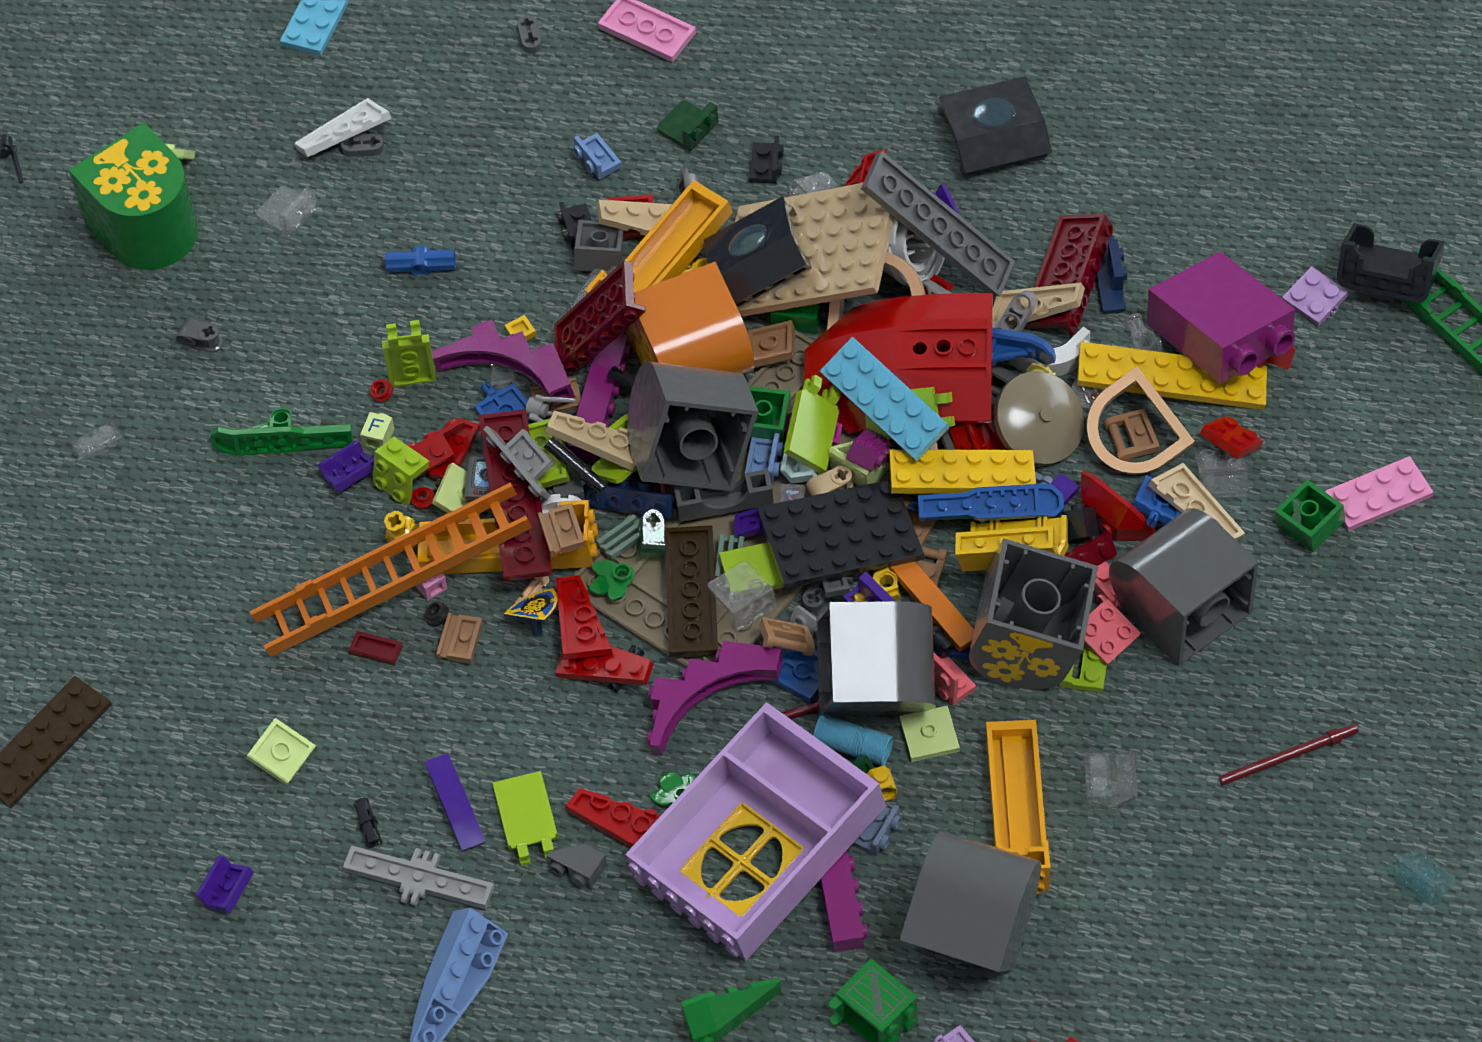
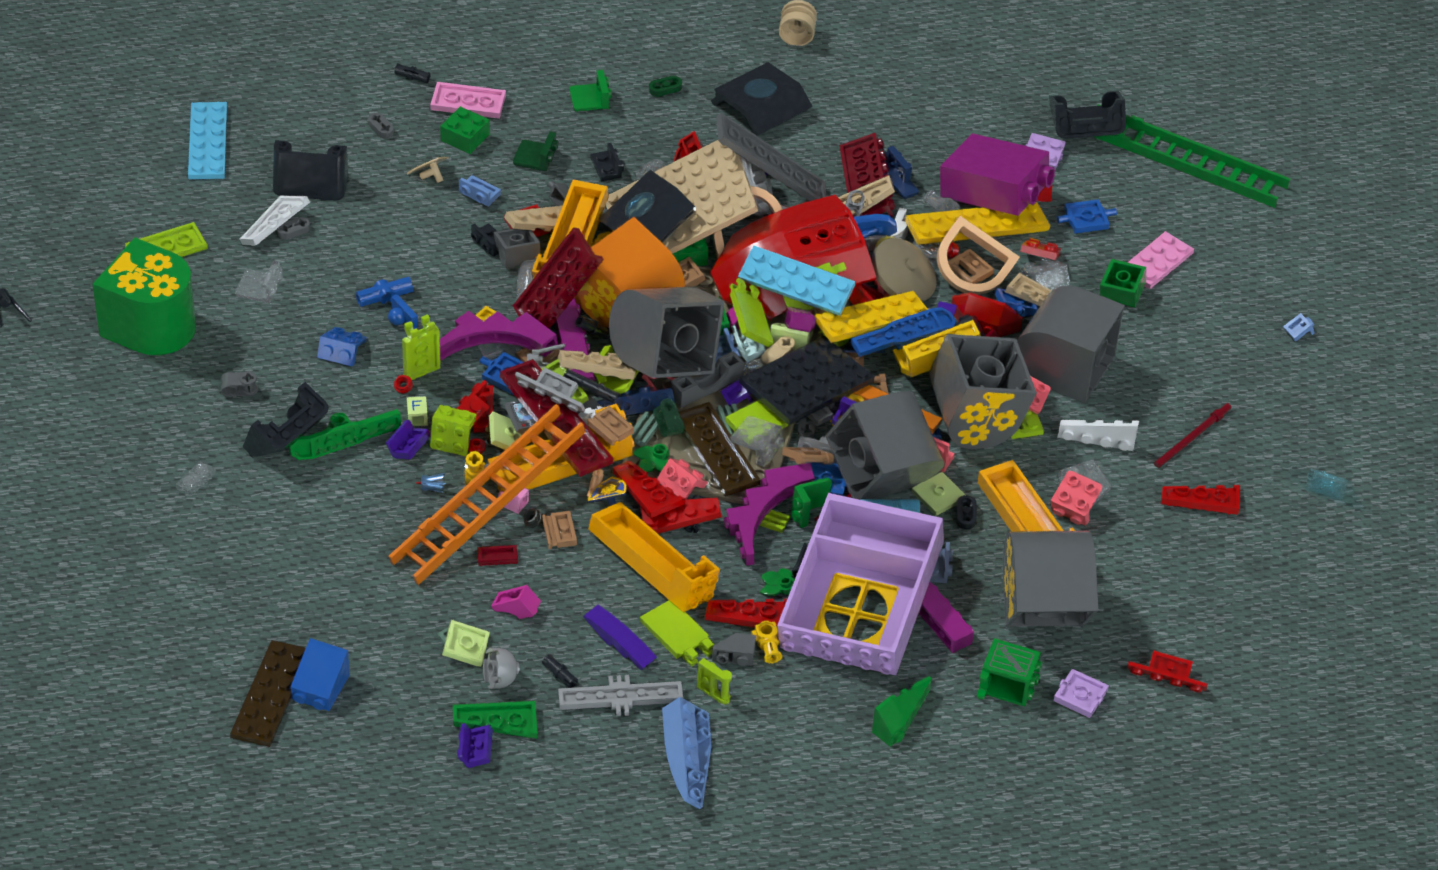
camera: 30 degrees left, 10 degrees down
(98, 742) = (320, 675): none -> blue slope
(212, 127) = (179, 240): none -> lime tile
(245, 401) = (303, 415): none -> black windscreen
(273, 860) = (503, 717): none -> green wing
(299, 798) = (500, 668): none -> light grey cylinder
(334, 316) = (340, 346): none -> blue bracket
(343, 528) = (428, 483): none -> flat silver piece
(362, 719) = (517, 601): none -> dark pink arch
(409, 83) = (310, 173): none -> black windscreen
(421, 297) = (401, 312): none -> blue tile
(527, 900) = (708, 678): none -> lime plate
(544, 711) = (655, 558): none -> light orange brick
(556, 114) = (434, 170): none -> tan shield
(618, 866) = (767, 640): none -> yellow connector
(620, 69) = (465, 130): none -> green brick
(625, 617) = (680, 477): none -> coral bracket
(723, 713) = (775, 517): none -> lime tile
(762, 689) = (808, 497): none -> green bracket
(794, 61) = (591, 96): none -> green bracket
(890, 72) = (665, 86): none -> dark green plate
(945, 771) = (966, 516): none -> black plate
(1084, 796) = (1075, 497): none -> coral bracket
(1093, 29) = (797, 23): none -> tan wheel
(1121, 403) = (953, 250): none -> red plate
(1174, 723) = (1114, 435): none -> white wing
(1262, 851) = (1209, 499): none -> red wing
(1319, 405) = (1086, 216): none -> blue plate

